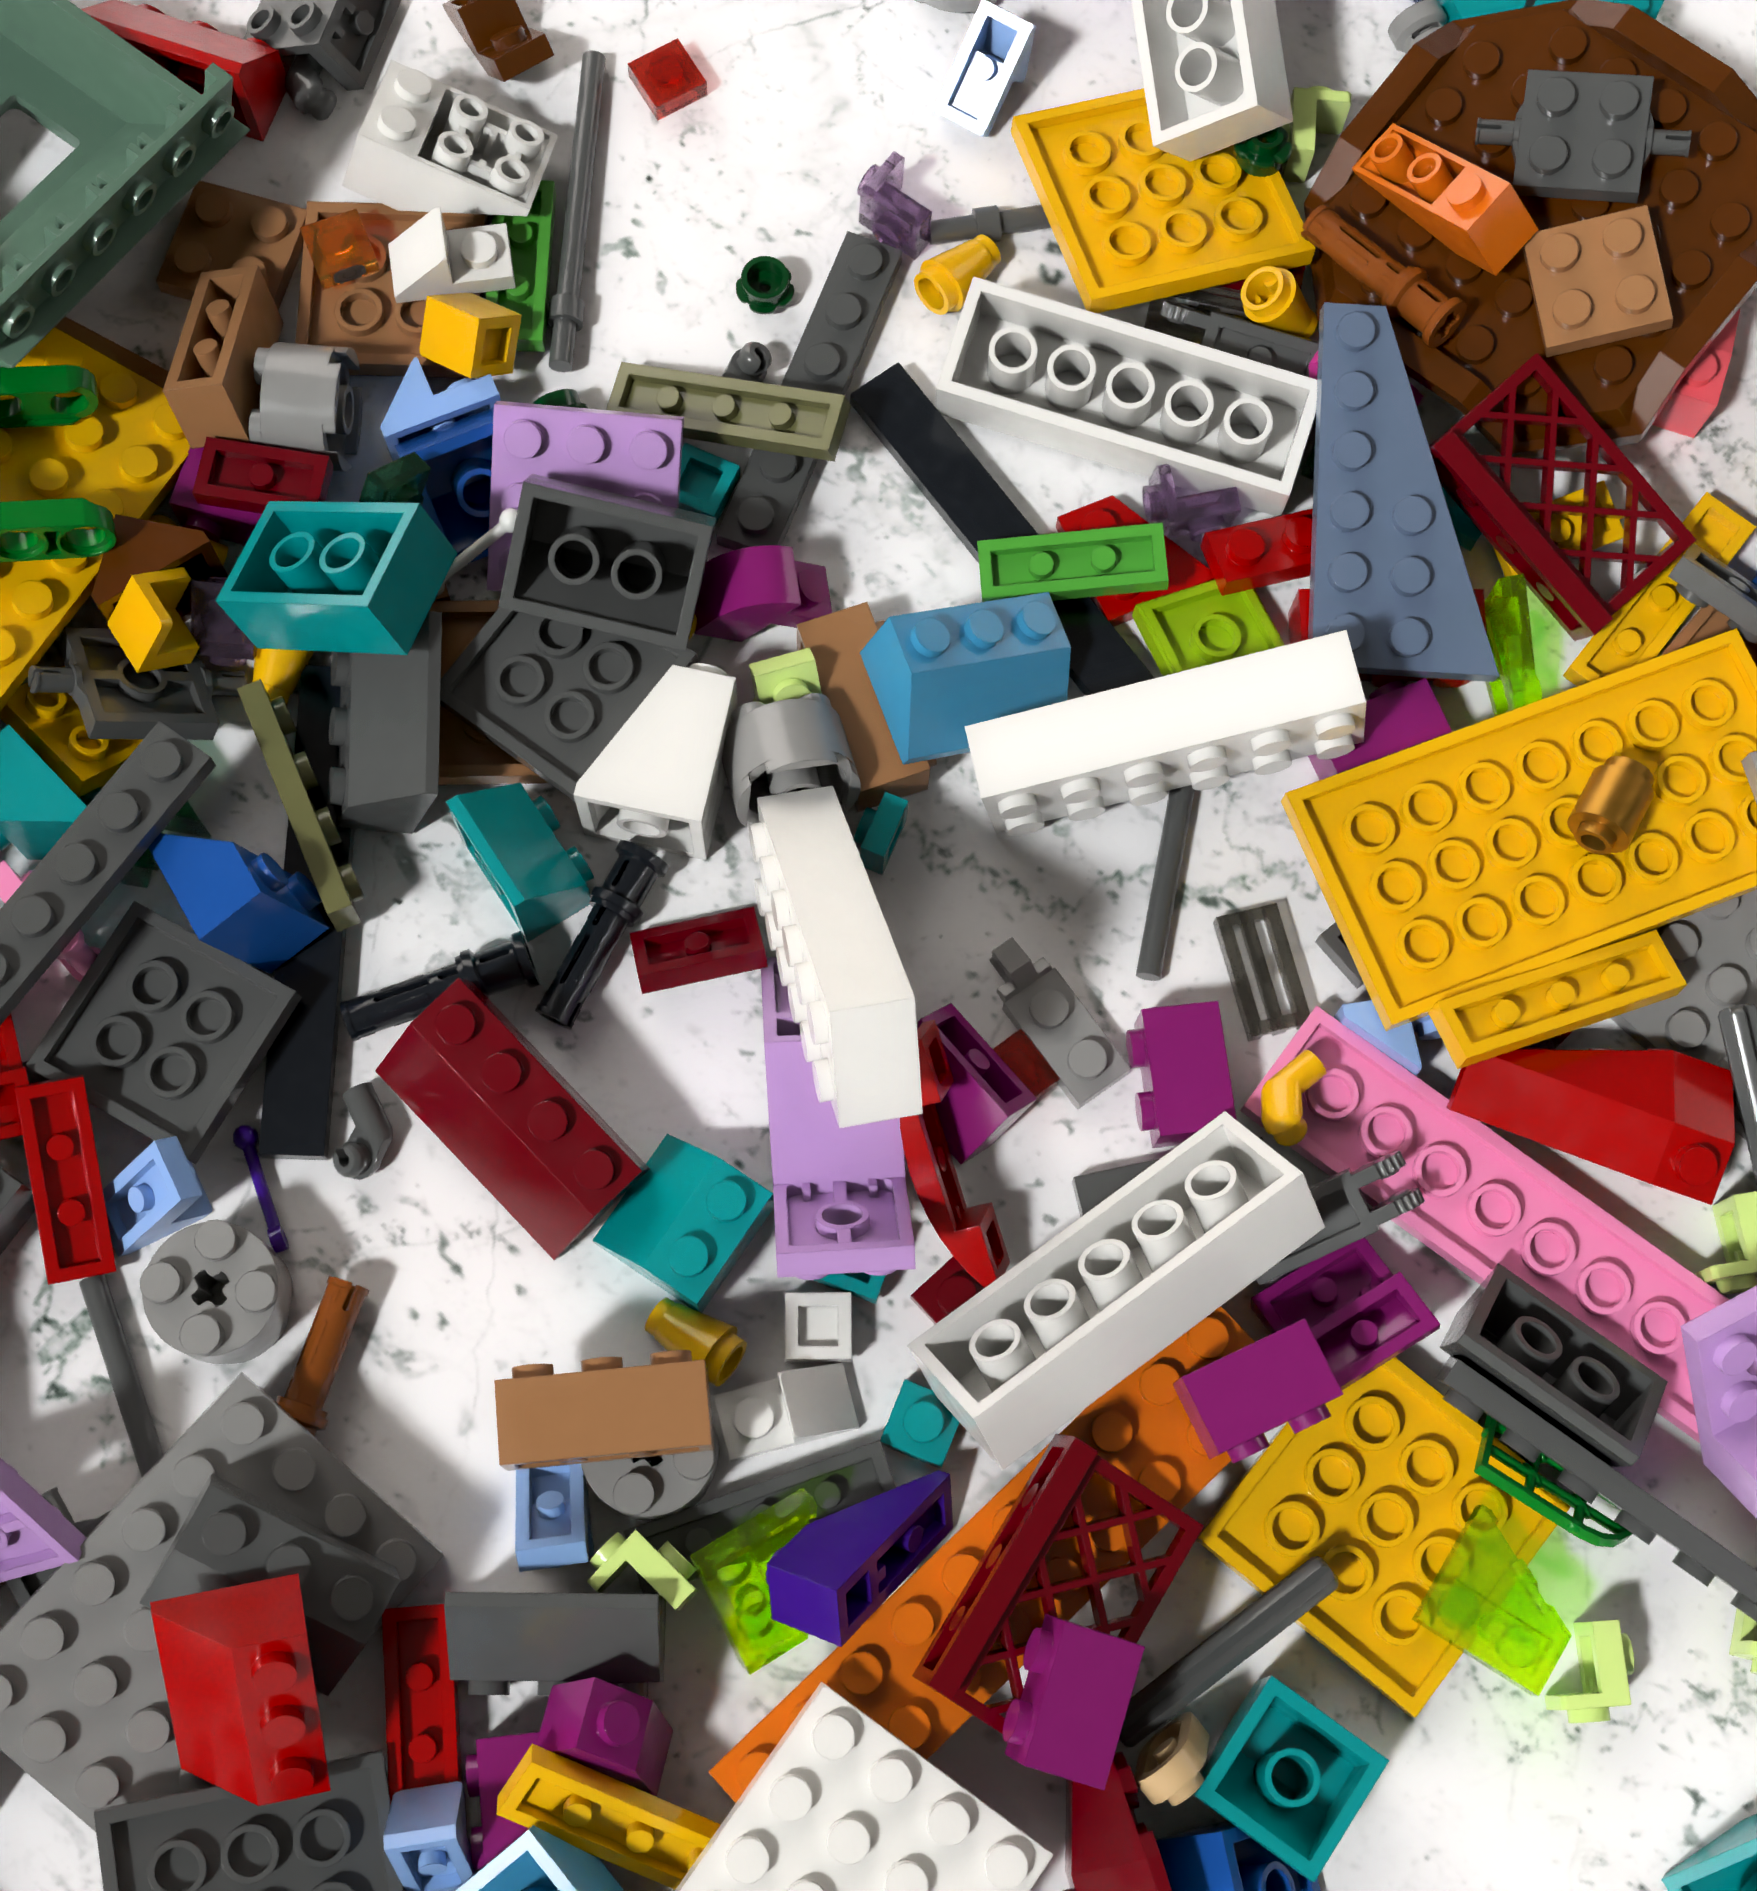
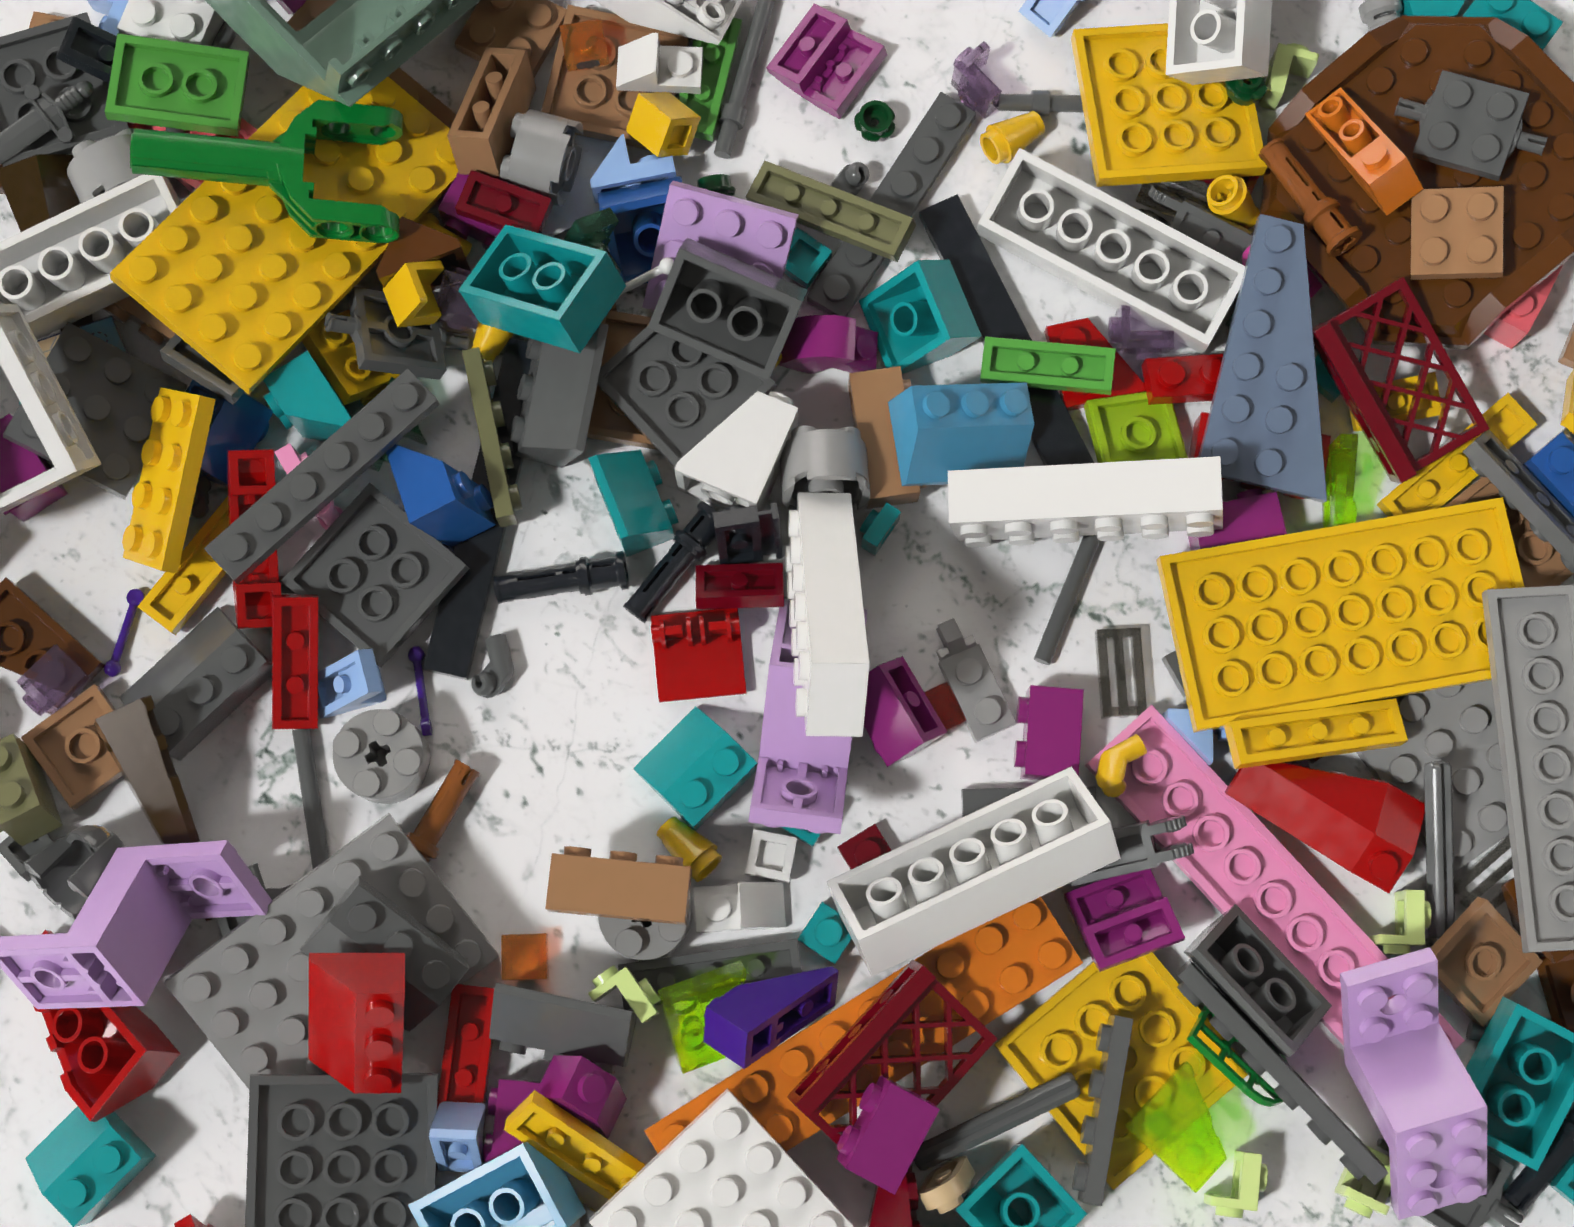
camera: 15 degrees right, 5 degrees up
(481, 1548) = (524, 957): none -> clear orange plate
(510, 1117) = (593, 676): dark red slope -> none
(552, 1518) = (573, 947): light blue slope -> none
(657, 1059) = (698, 654): none -> red hinge
(682, 219) = (826, 61): none -> magenta slope
(696, 872) = (747, 534): none -> black plate
(785, 677) = (833, 411): yellowish green bracket -> none
(880, 531) = (920, 316): none -> teal slope
(967, 1232) = (882, 812): red slope -> none
(1259, 1390) = (1052, 958): magenta brick -> none
(1378, 1629) = (1099, 1128): none -> dark grey plate
(1612, 805) = (1382, 608): pearl gold brick -> none

